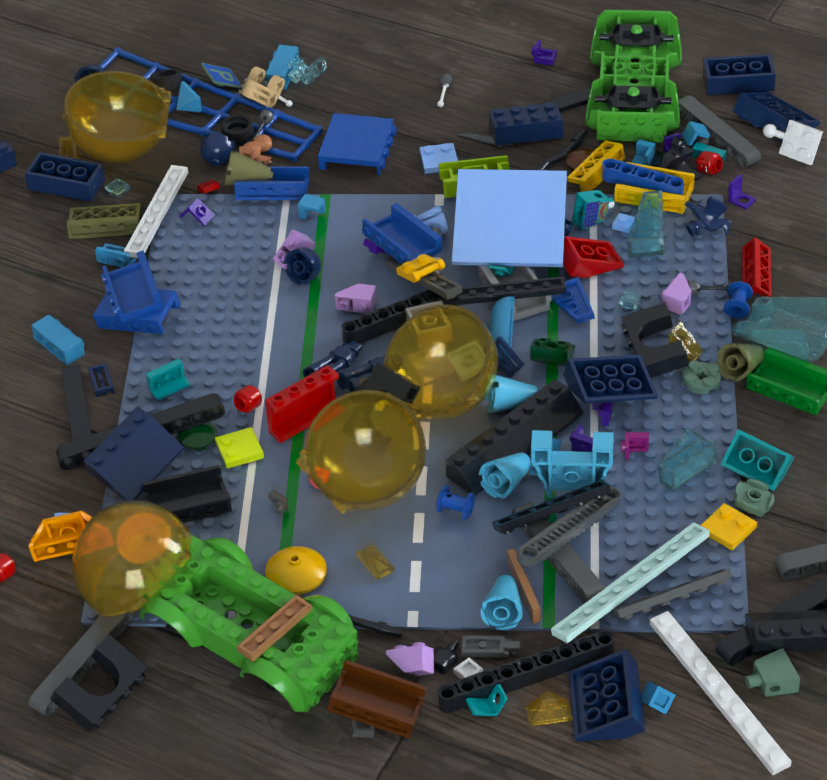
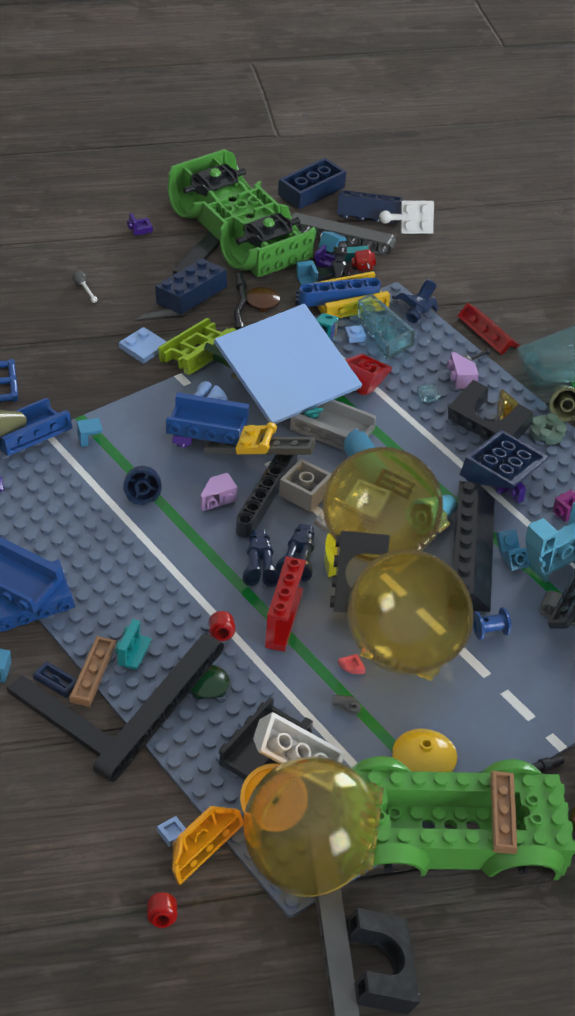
camera: 45 degrees left, 0 degrees up
(122, 387) = (93, 671): none -> medium nougat tile
(133, 454) = (186, 730): dark blue slope -> none
(180, 497) = (286, 741): none -> white slope
(239, 447) = (257, 674): neon yellow plate -> none
(293, 241) = (114, 476): lavender slope -> none
(357, 141) = (61, 359): blue panel -> none
(375, 561) = (477, 710): clear yellow slope -> none
(504, 474) = (505, 581): medium azure cone -> none
(518, 289) = (346, 423): black tile -> none
(551, 352) = (433, 457): dark green brick -> none
(574, 302) = (391, 412): blue wing -> none
(580, 442) = (521, 522): dark purple bracket -> none
(593, 176) = (285, 294): yellow fence -> none
(735, 193) = (407, 277): dark purple bracket -> none
(737, 305) = (510, 361): blue hose -> none

